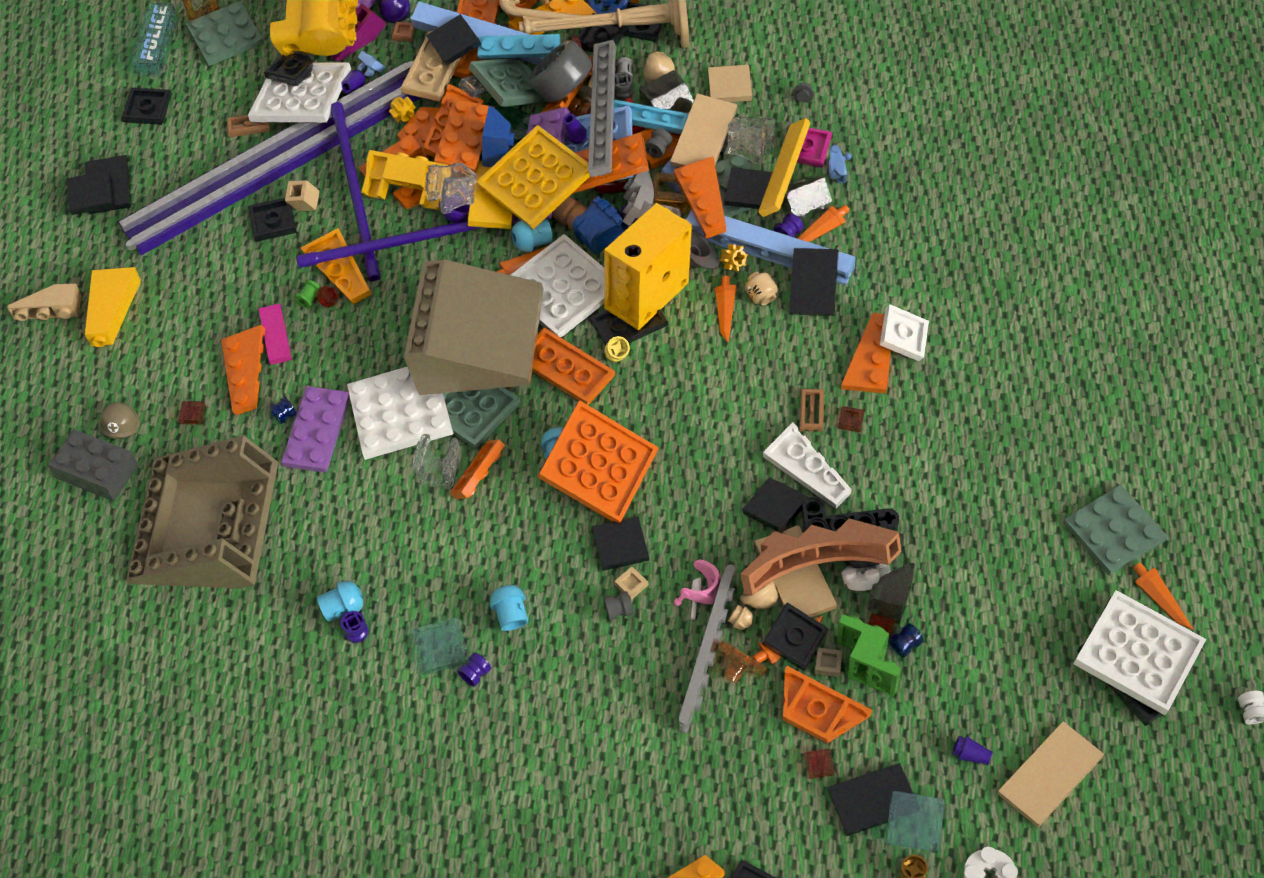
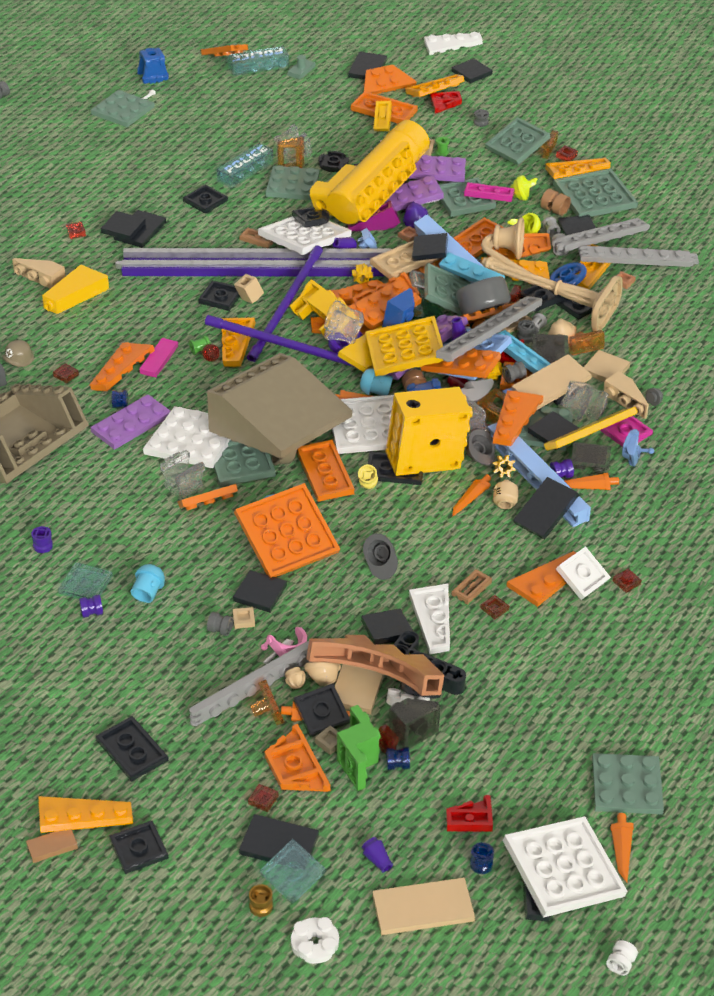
camera: 30 degrees right, 15 degrees down
(38, 227) = (75, 230): none -> clear red plate
(340, 600) = (50, 517): medium azure piece -> none
(652, 796) = (132, 748): none -> black tile
(692, 64) = (586, 342): none -> clear orange tile
(707, 433) = (378, 549): none -> dark grey piece
(777, 104) = (626, 393): none -> tan slope
(942, 314) = (627, 580): none -> clear red plate
(1017, 655) = (471, 816): none -> red wing
(1061, 697) = (482, 858): none -> clear blue wheel

